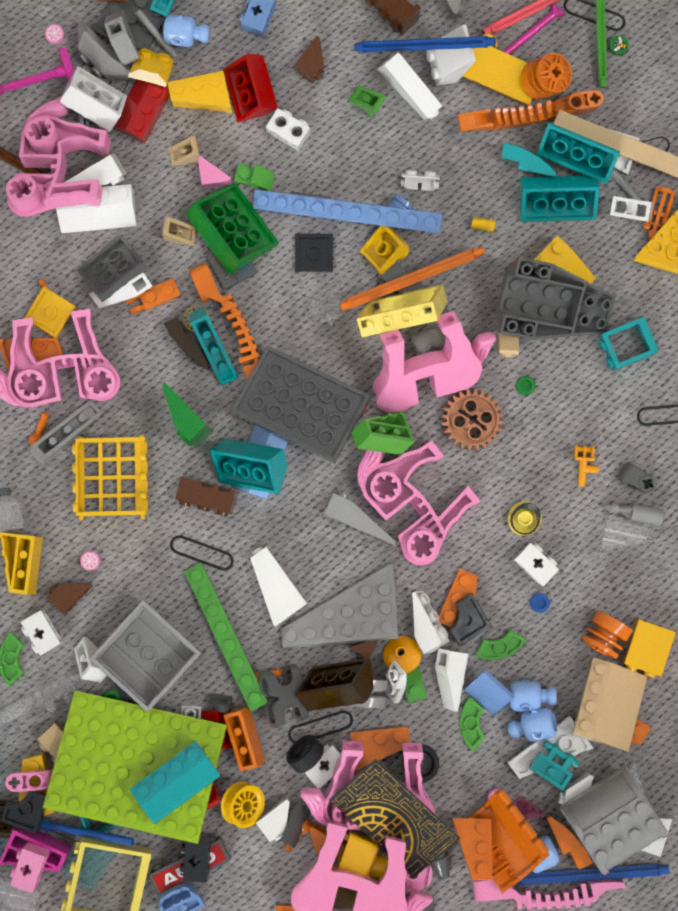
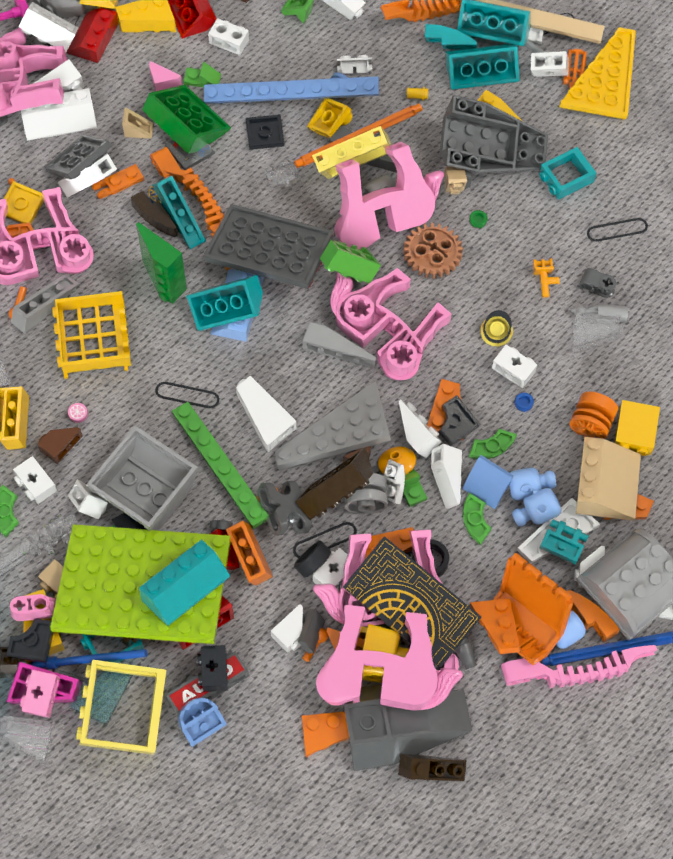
camera: 10 degrees left, 20 degrees down
(184, 152) = (137, 62): tan slope -> none
(206, 496) = (187, 340): reddish brown wedge -> none
(242, 804) = (255, 614): yellow wheel -> none

